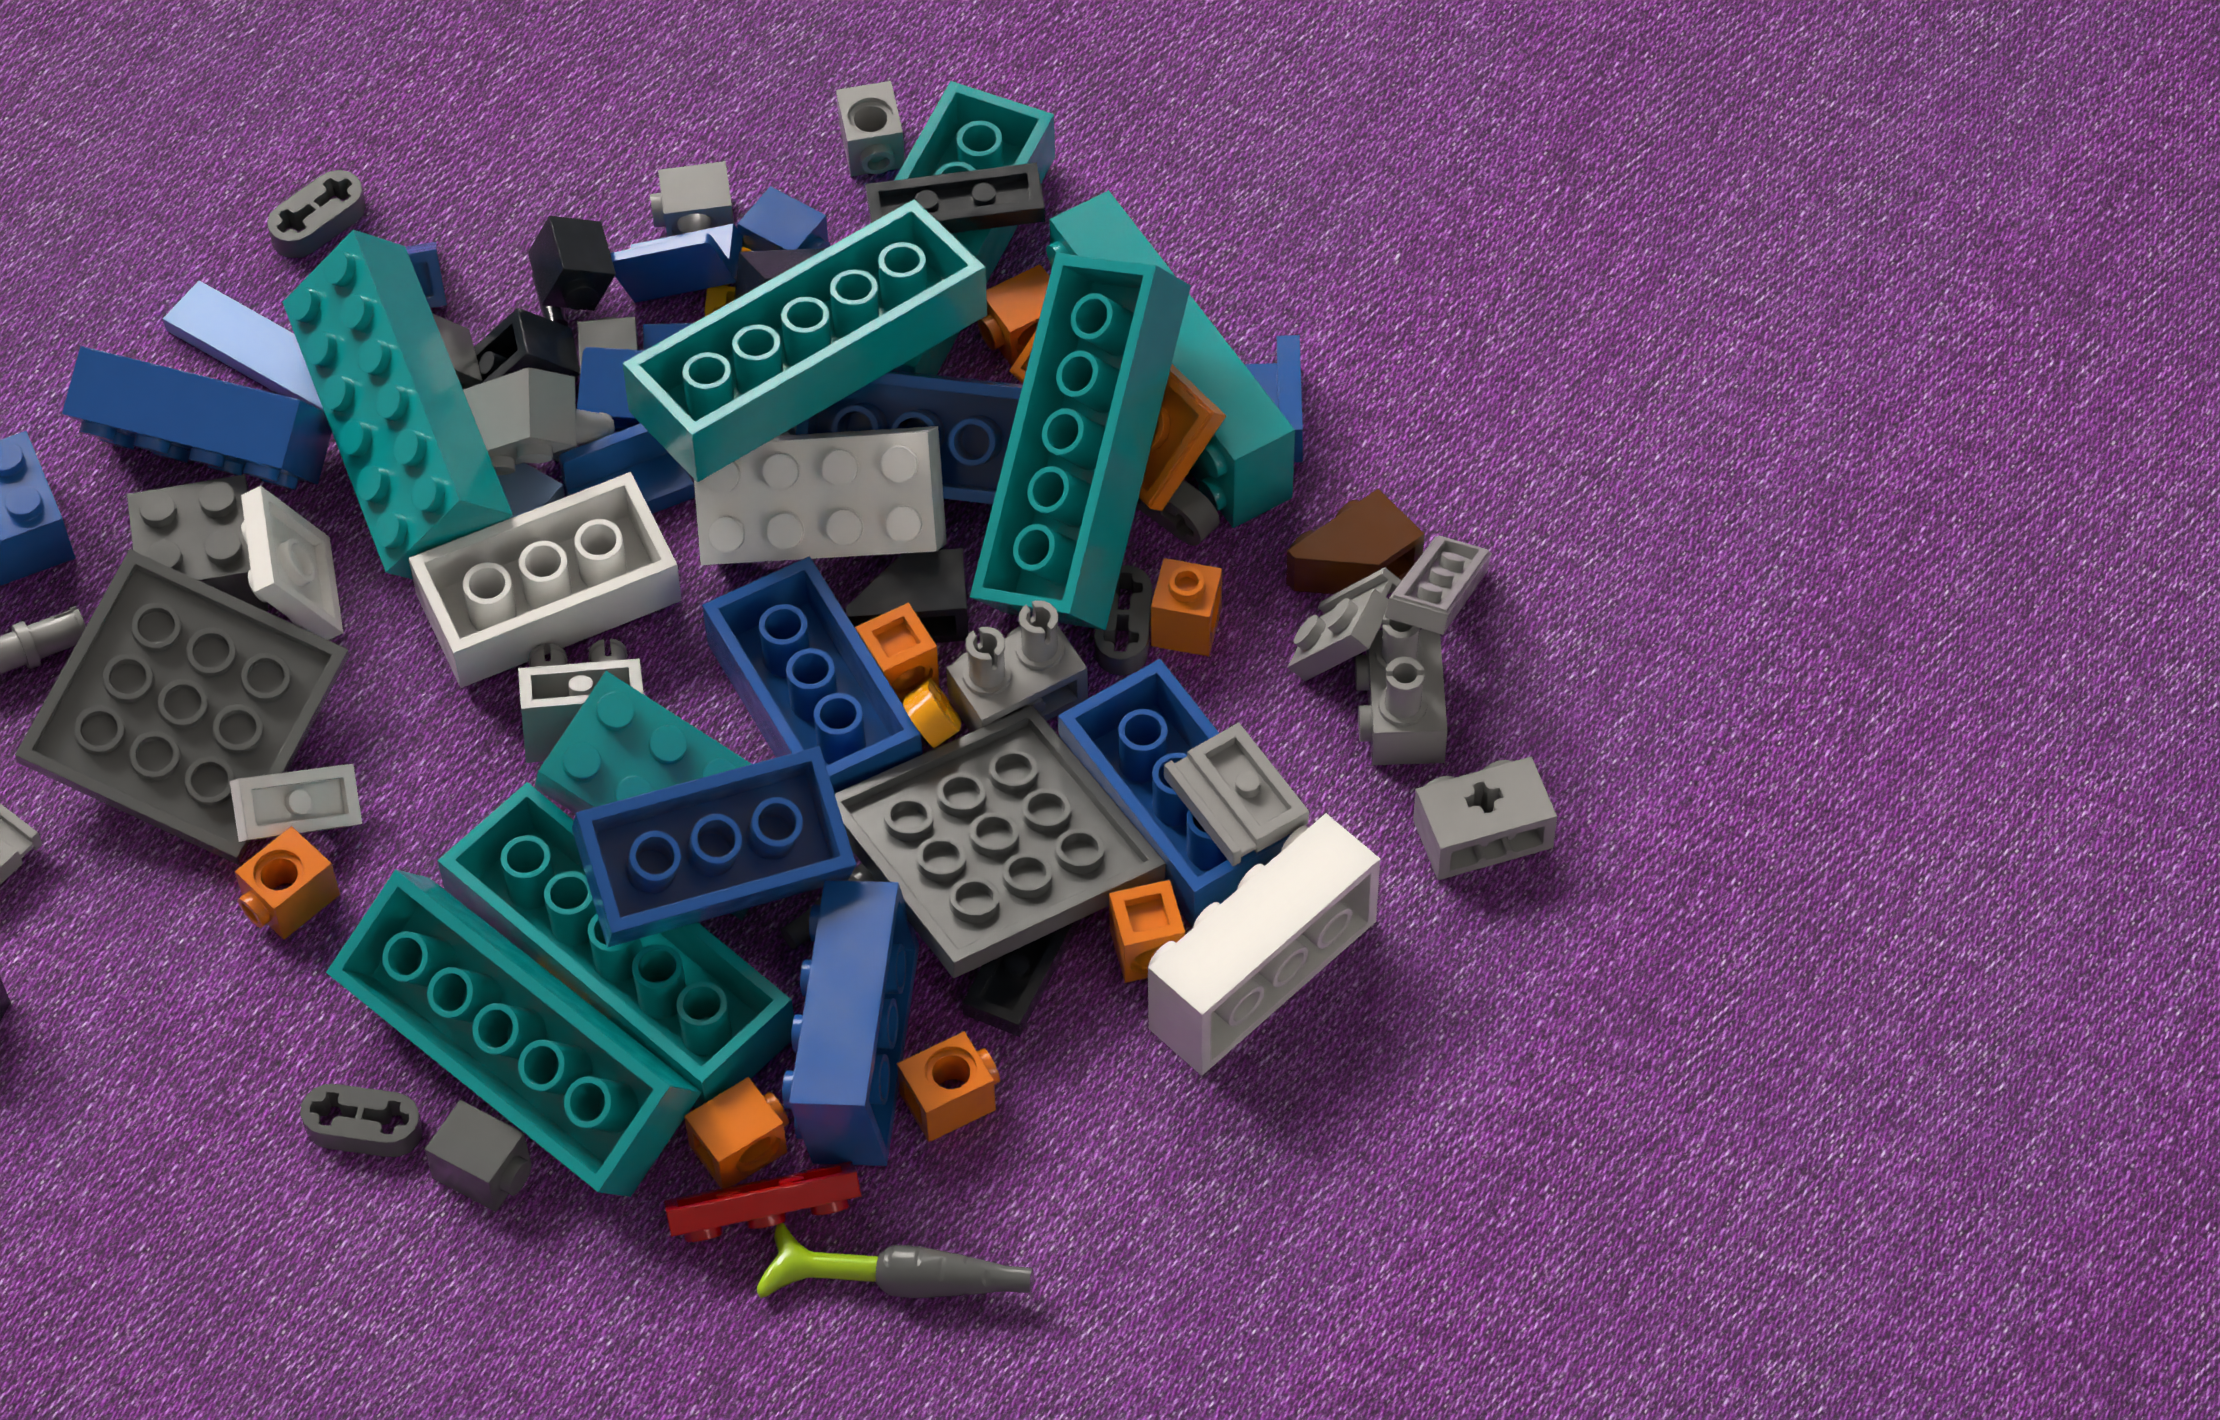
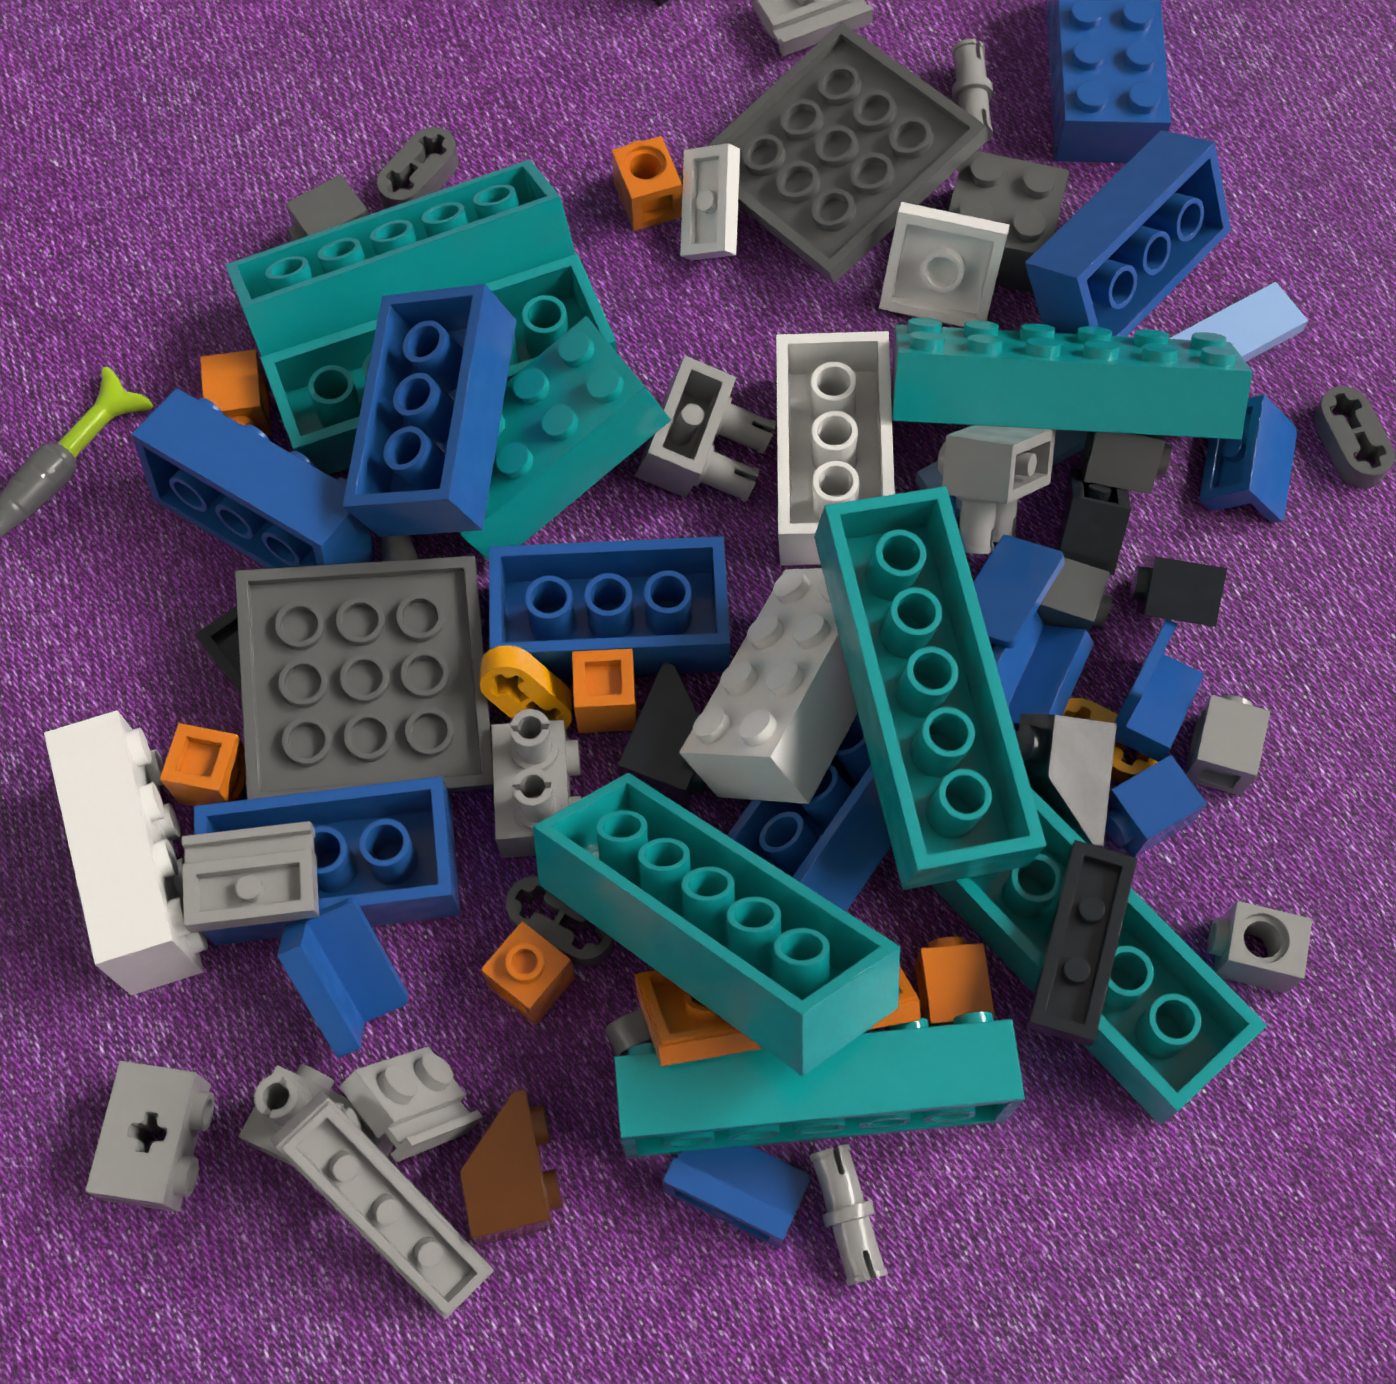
camera: 115 degrees right, 10 degrees up
(763, 1201) = (170, 366): red plate -> none
(943, 1109) = (172, 540): orange brick -> none
(1252, 319) = (848, 1214): none -> light grey pin
(1277, 730) = (341, 973): none -> blue panel

